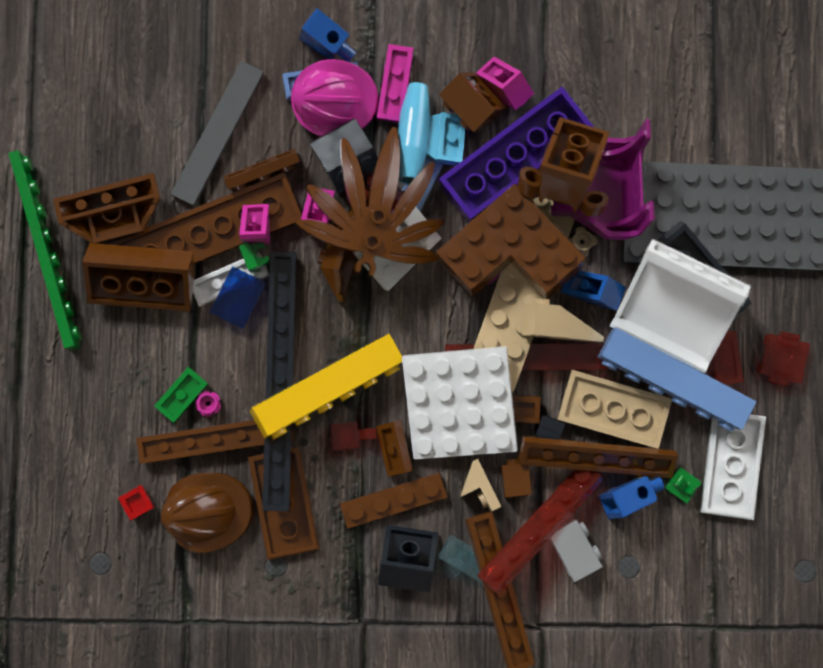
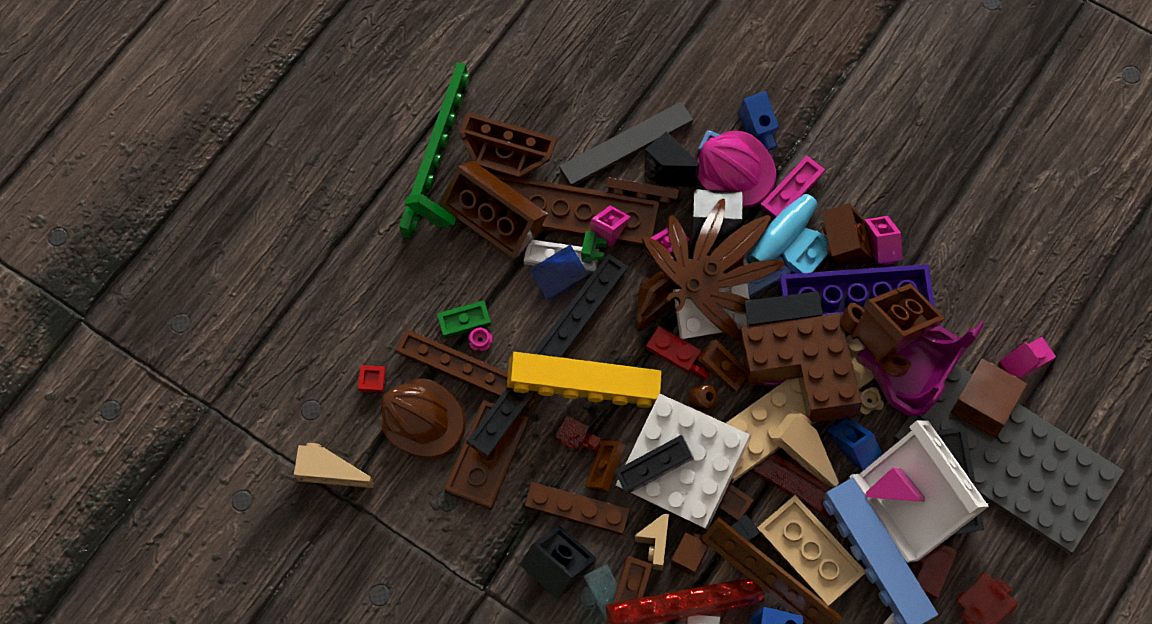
camera: 35 degrees right, 15 degrees down
(82, 315) = (430, 210): none -> green tile
(148, 608) = (321, 466): none -> tan slope
(271, 130) = (670, 163): none -> black slope
(391, 303) = (676, 352): none -> red hinge
(438, 424) = (654, 464): none -> black tile
(439, 292) = (723, 365): none -> reddish brown plate
(439, 332) = (702, 397): none -> reddish brown piece
(462, 211) = (782, 308): none -> black tile
(659, 315) = (895, 486): none -> dark pink slope
(685, 177) = (988, 398): none -> reddish brown panel
(693, 118) = (1027, 358): none -> dark pink slope

